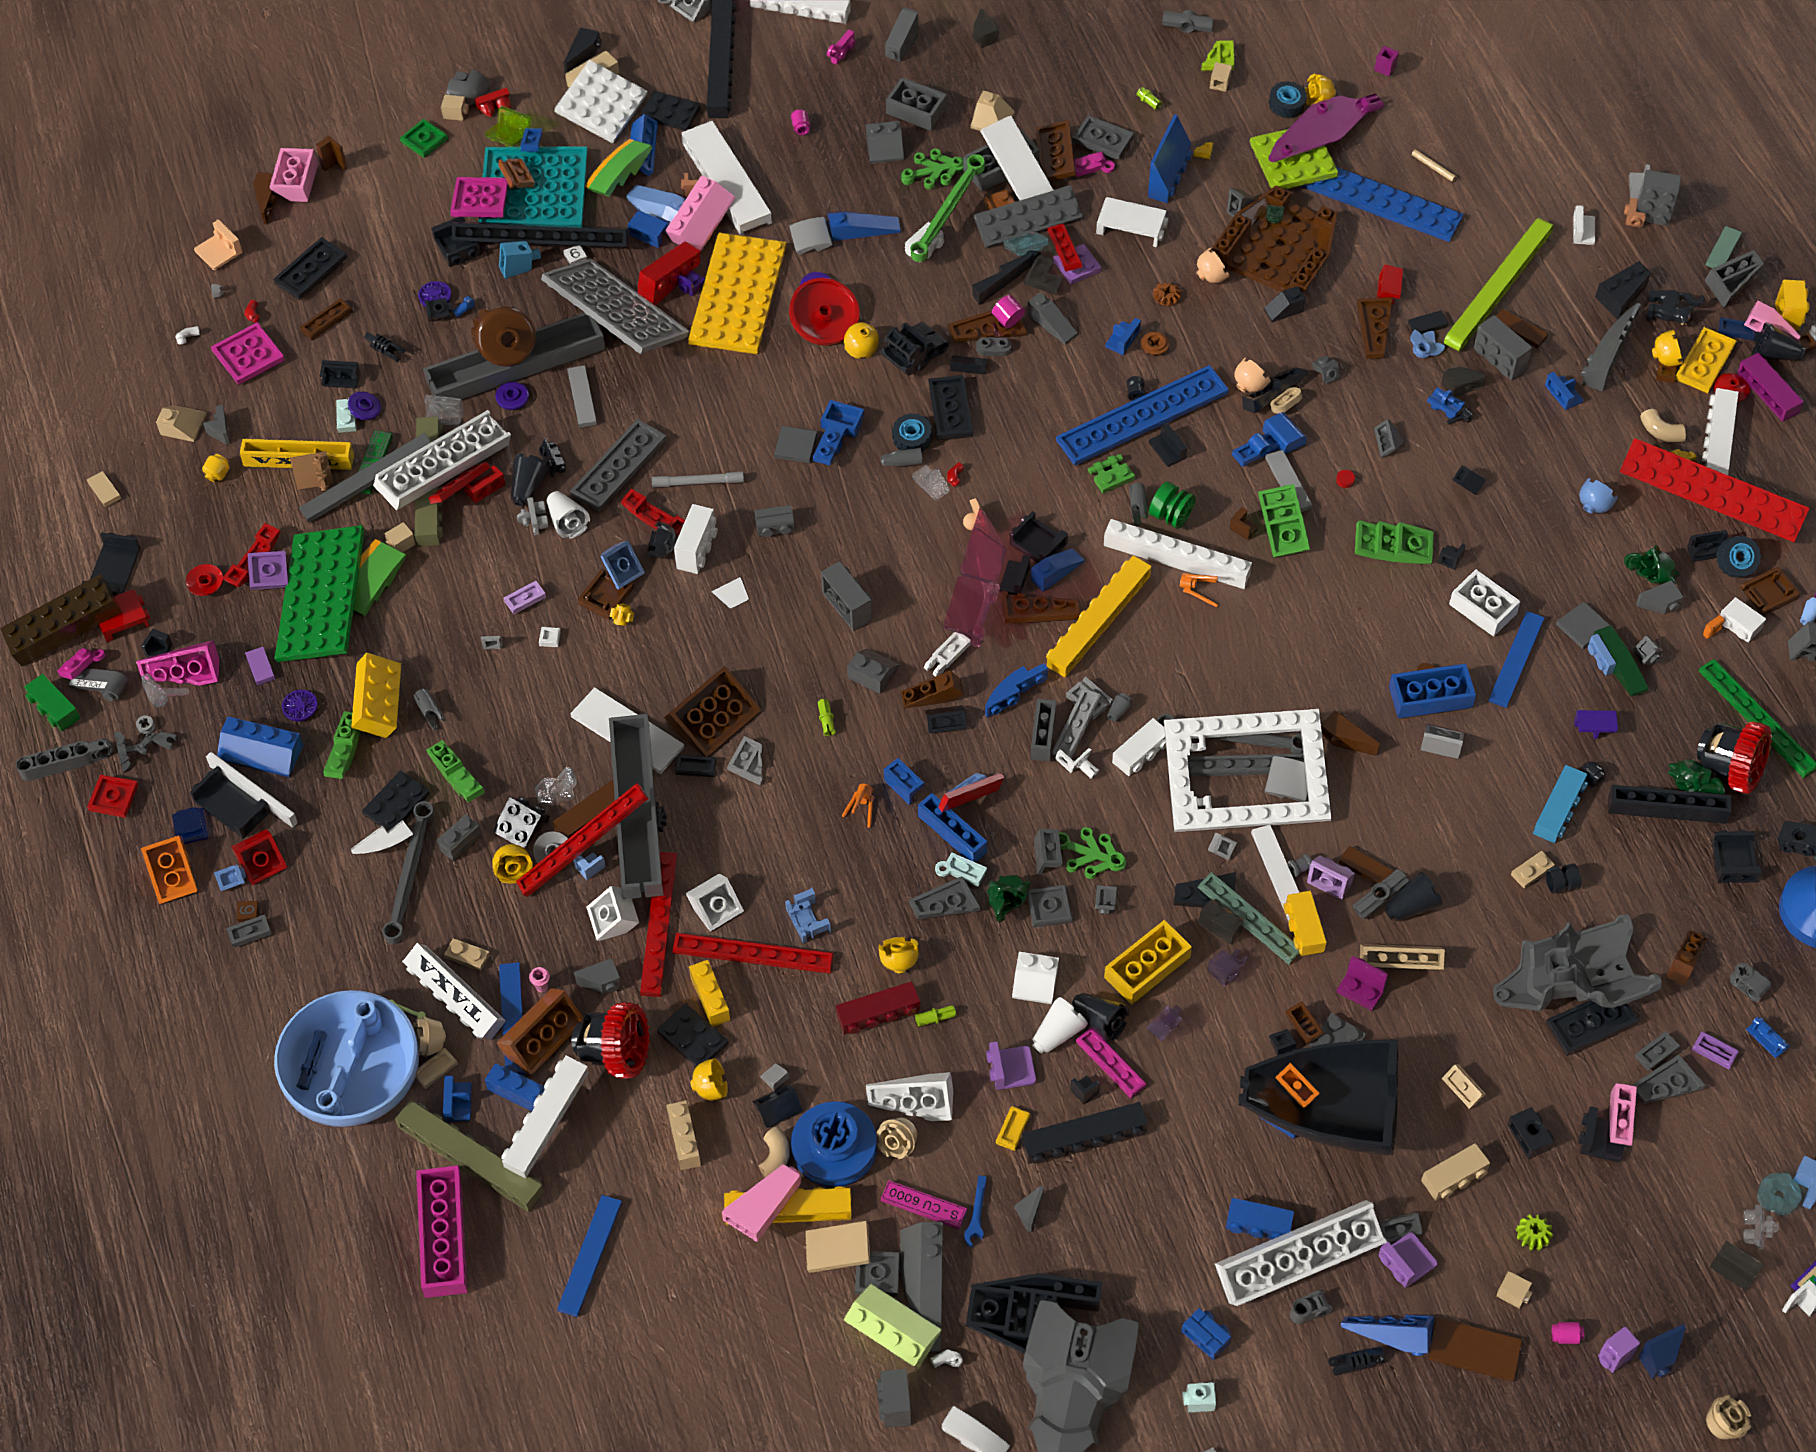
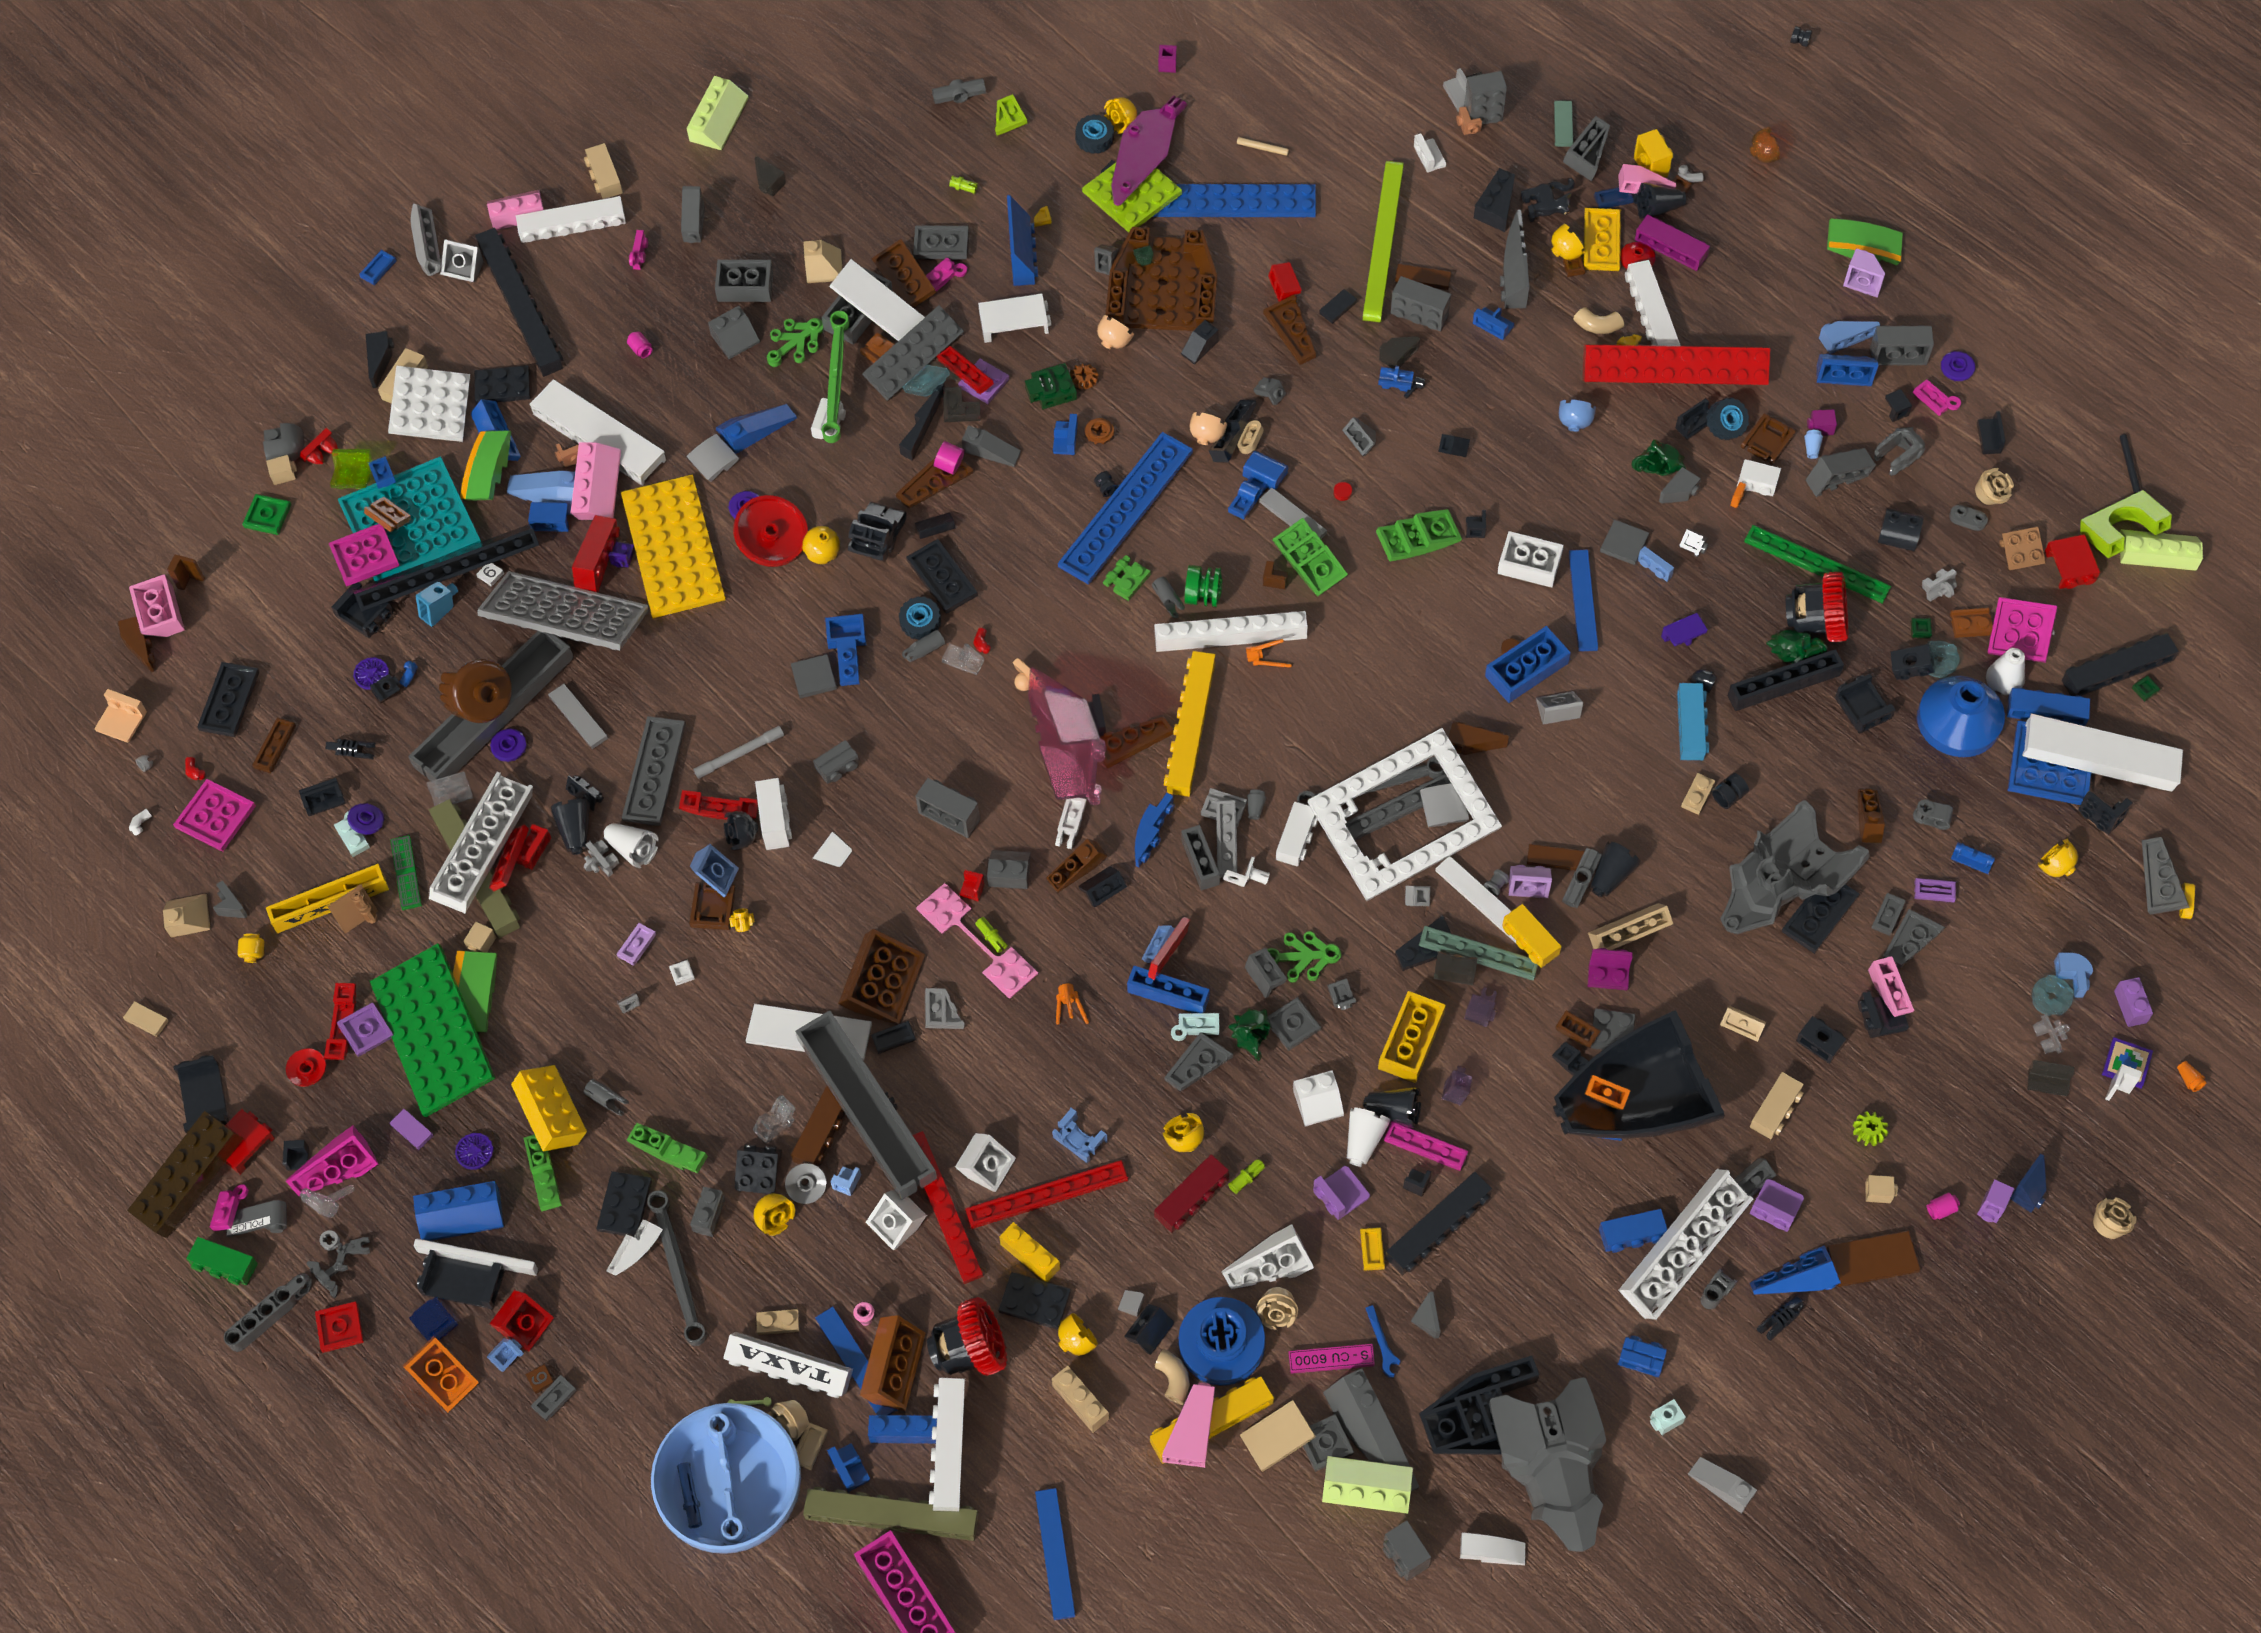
camera: 25 degrees left, 5 degrees up
(359, 481) = (411, 893): dark grey tile -> none
(582, 840) = (833, 1161): red tile -> none
(599, 977) = (918, 1285): dark grey slope -> none
(824, 754) = (1007, 971): none -> bright pink hinge
(833, 670) = (972, 885): none -> red panel
(902, 780) = (1097, 964): blue panel -> none
(948, 1357) = (1429, 1489): white arm -> none
(993, 346) = (949, 497): dark grey plate -> none
(1037, 539) = (1094, 673): black panel -> none
(1055, 568) = (1125, 694): blue slope -> none
(1132, 290) = (1051, 386): none -> dark green piece
(1168, 446) = (1165, 528): black panel -> none
(1220, 77) = (1020, 136): tan brick -> none
(1425, 344) = (1346, 326): medium blue plate -> none
(1625, 669) = (1684, 568): dark green slope -> none

